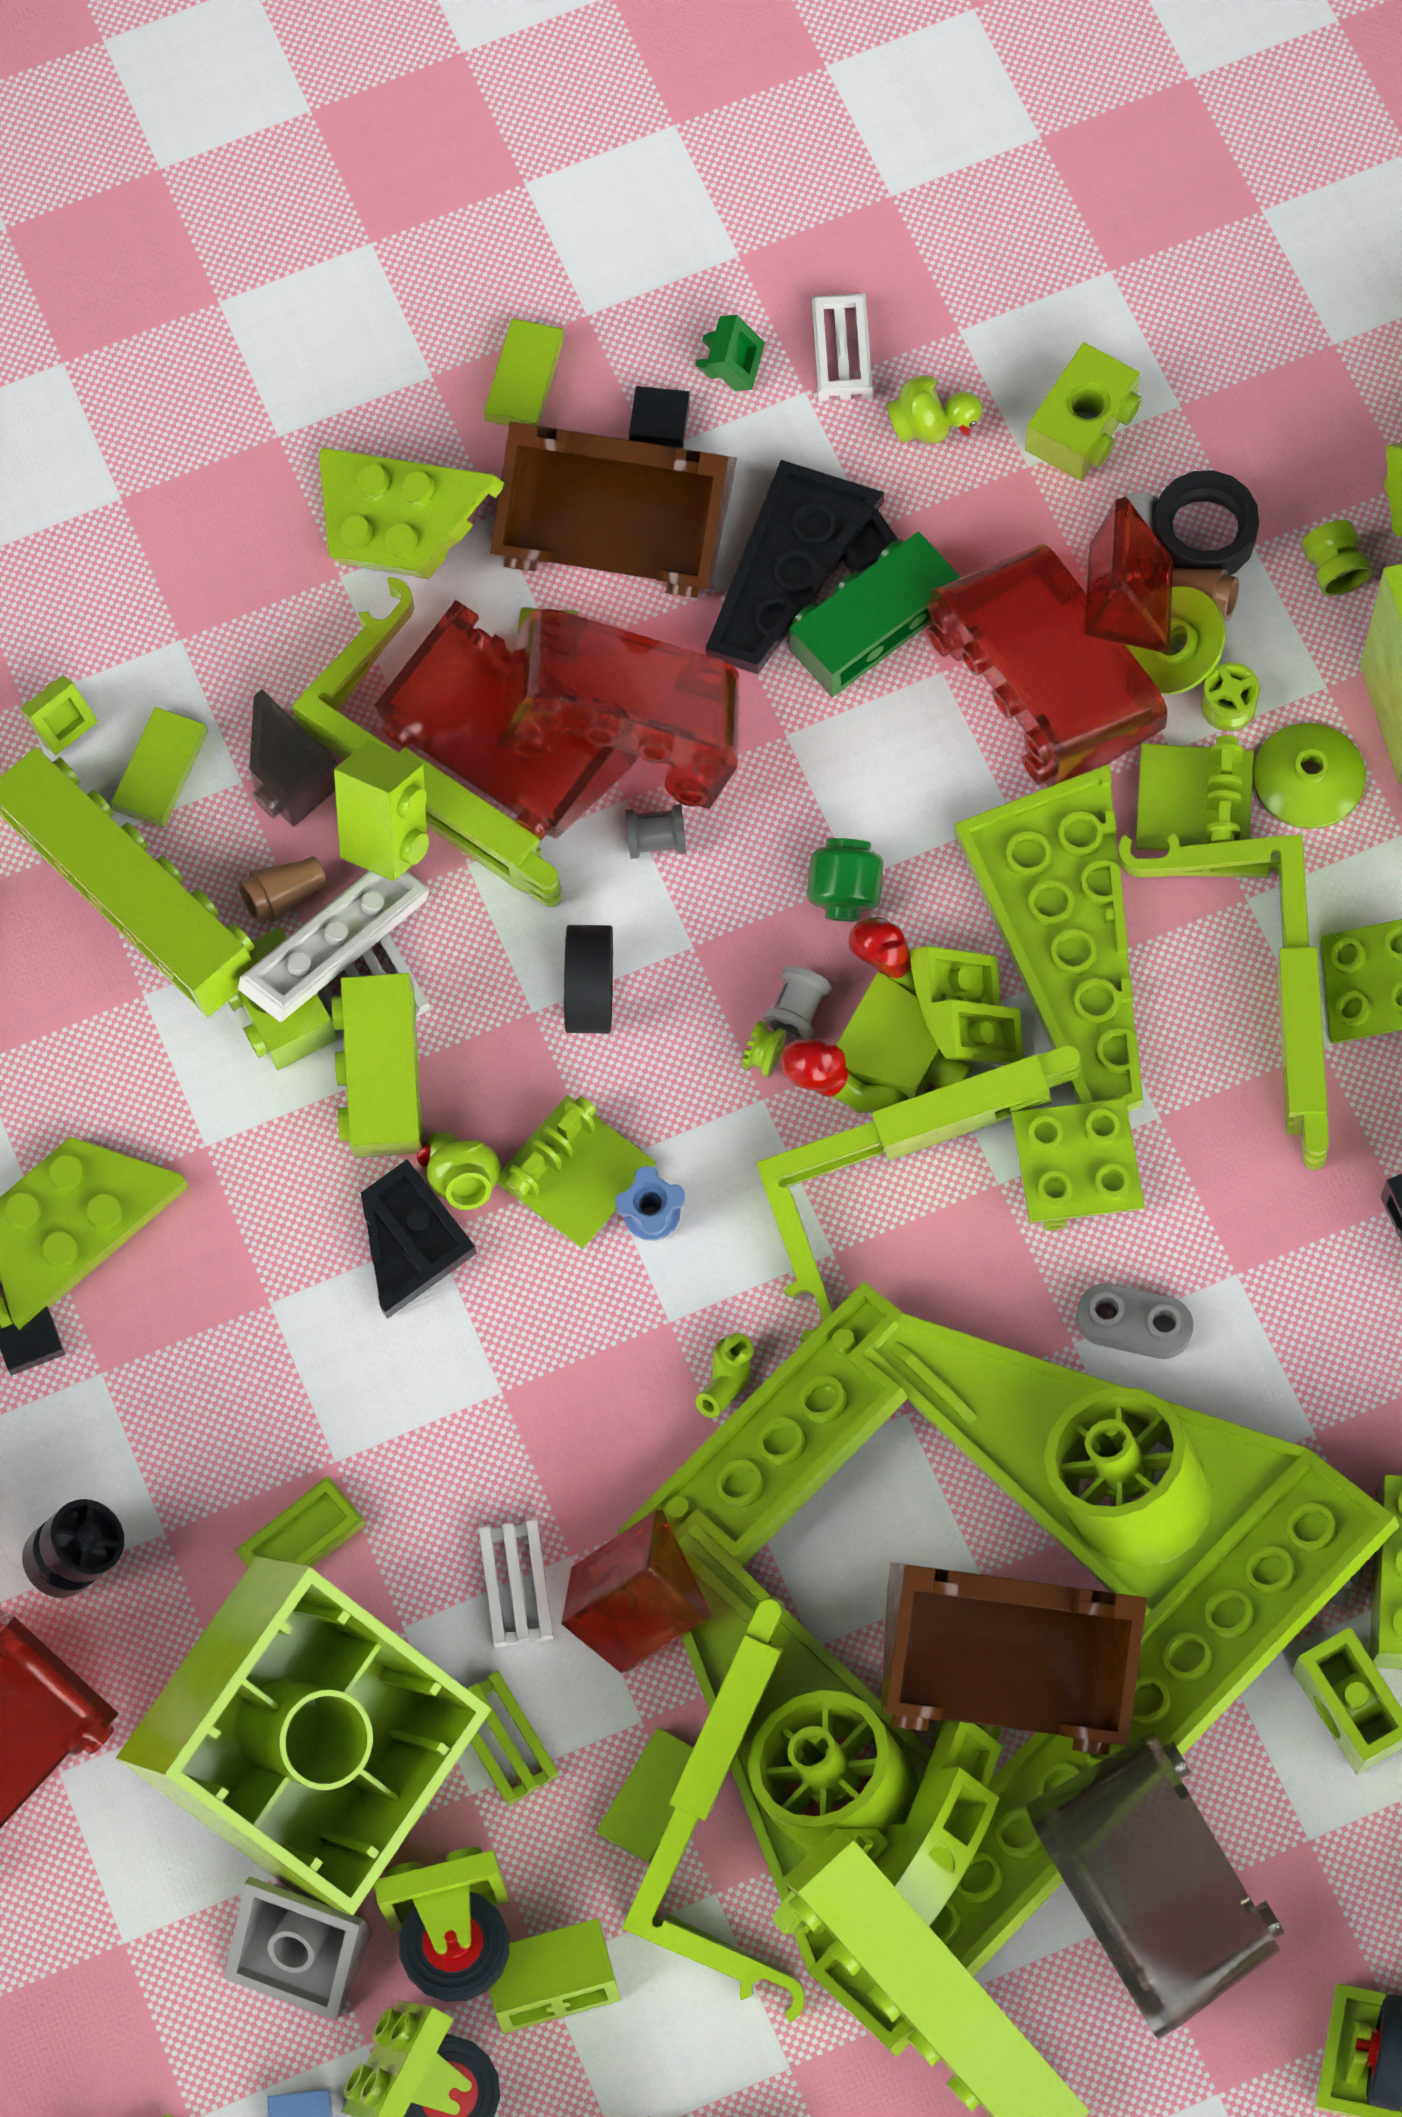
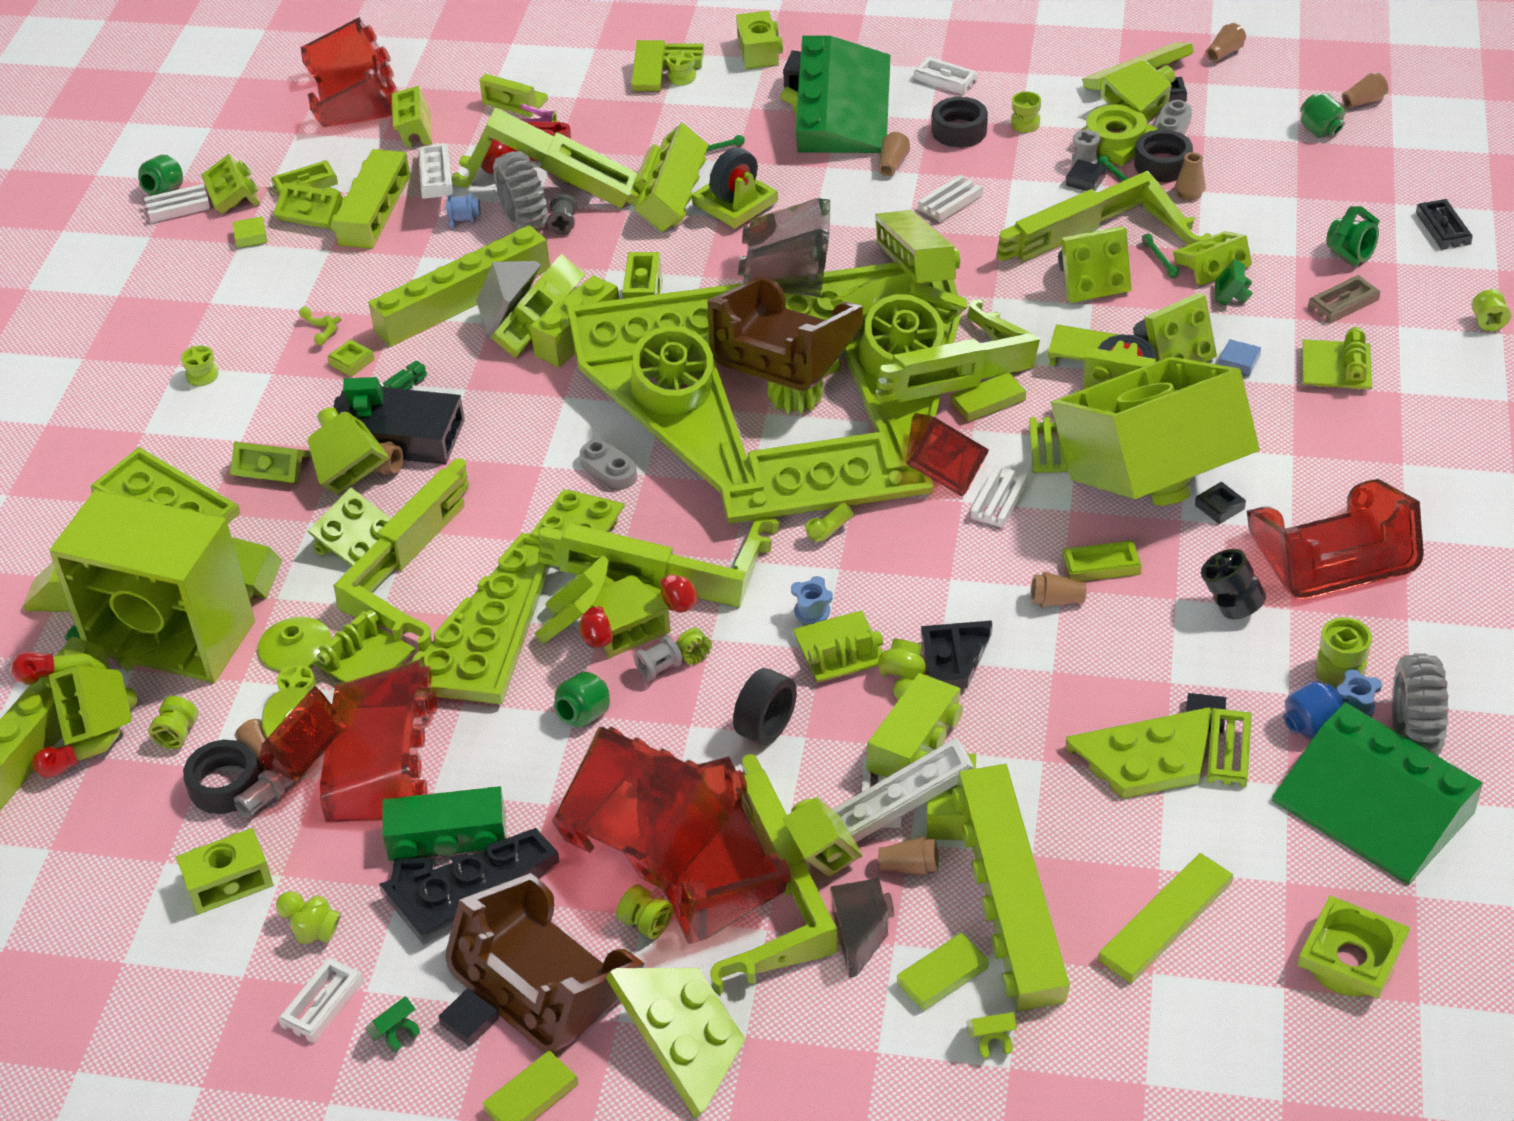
camera: 150 degrees left, 25 degrees down
(329, 1429) = (1056, 590): none -> medium nougat cone

